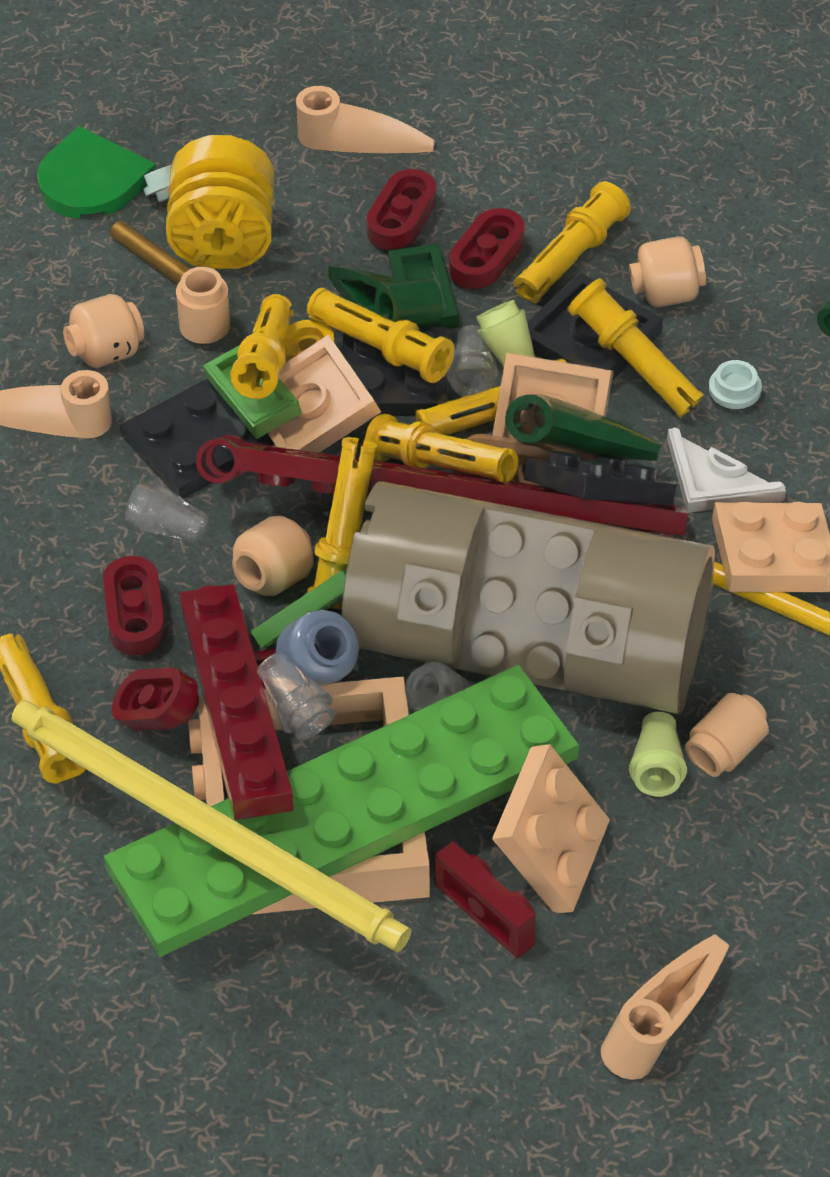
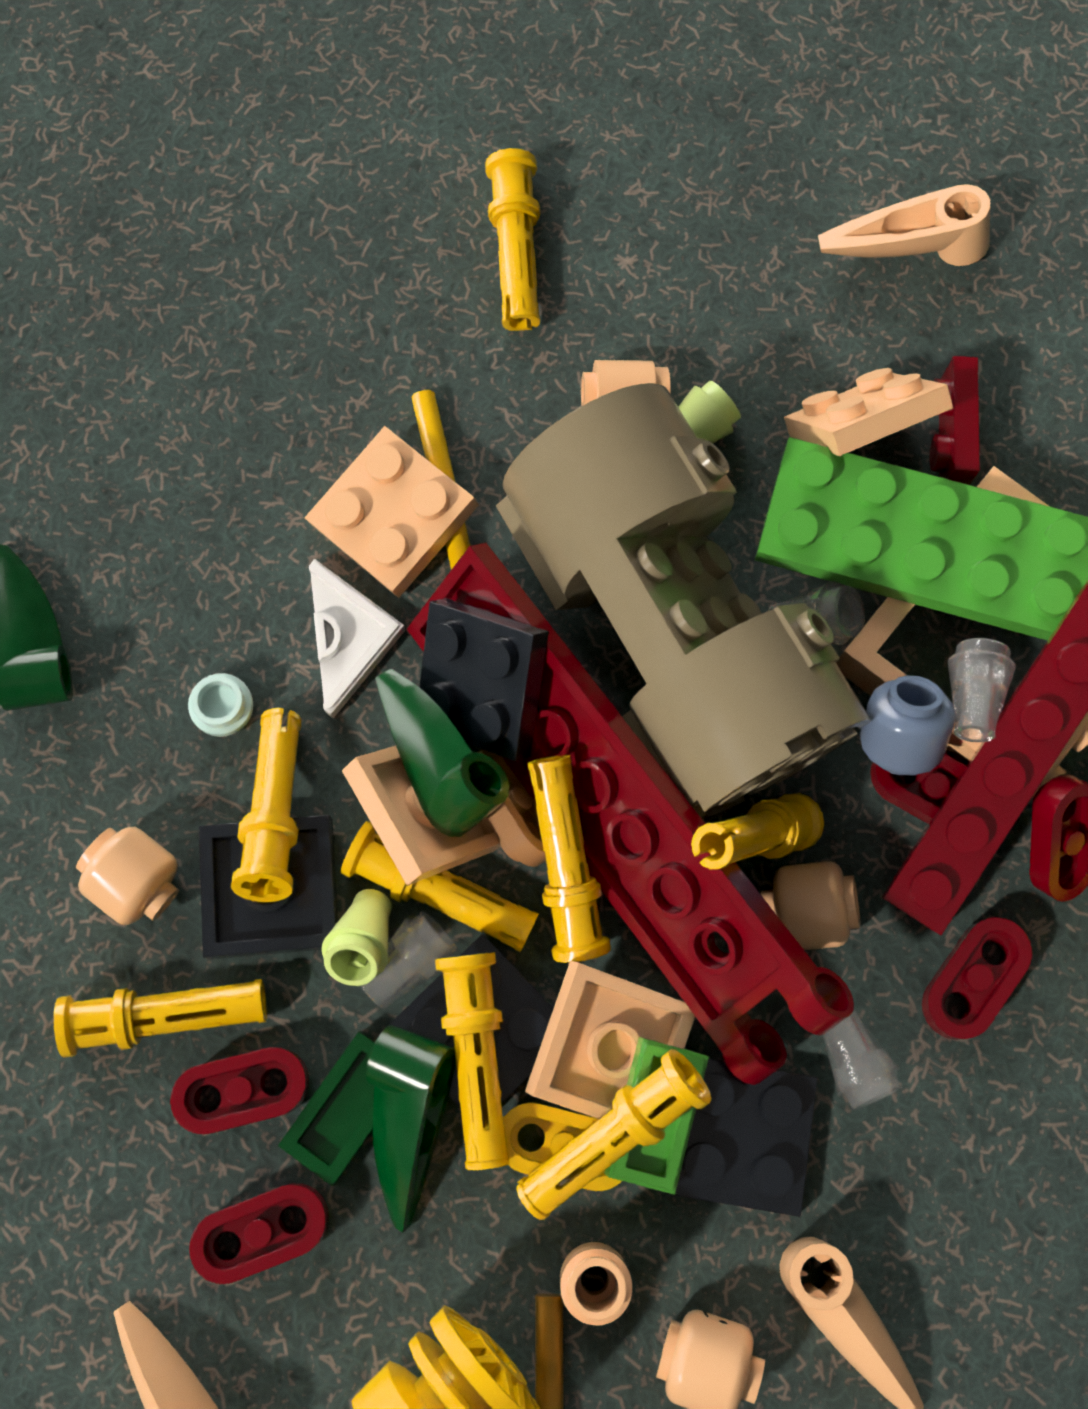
camera: 135 degrees left, 25 degrees up
(320, 598) = (852, 799): bright green tile -> none

